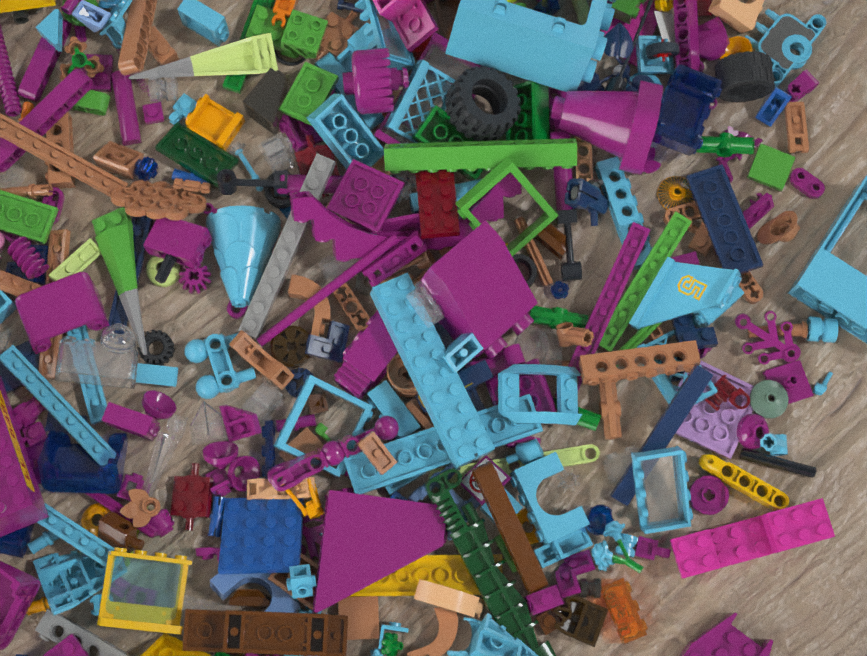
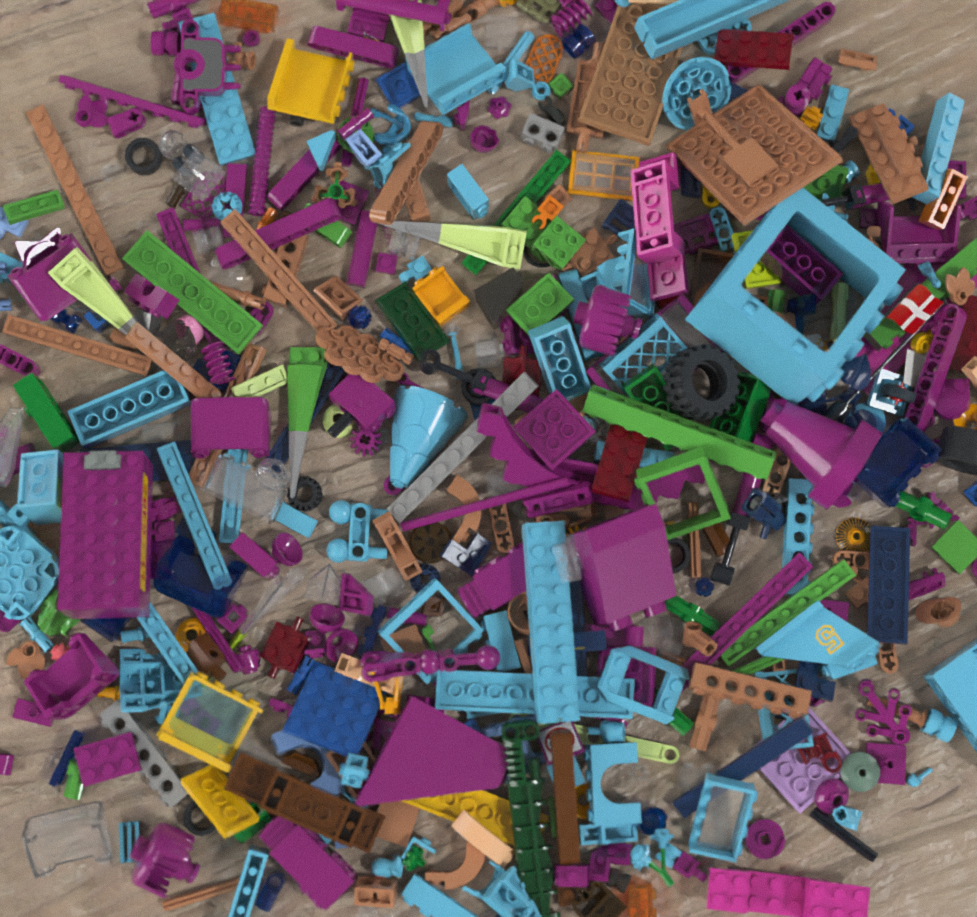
camera: 25 degrees right, 5 degrees up
(138, 506) = (231, 641): nougat plate -> none
(376, 453) = (469, 678): nougat plate -> none
(462, 351) = (585, 616): medium azure slope -> none
(715, 468) = (811, 845): yellow piece -> none

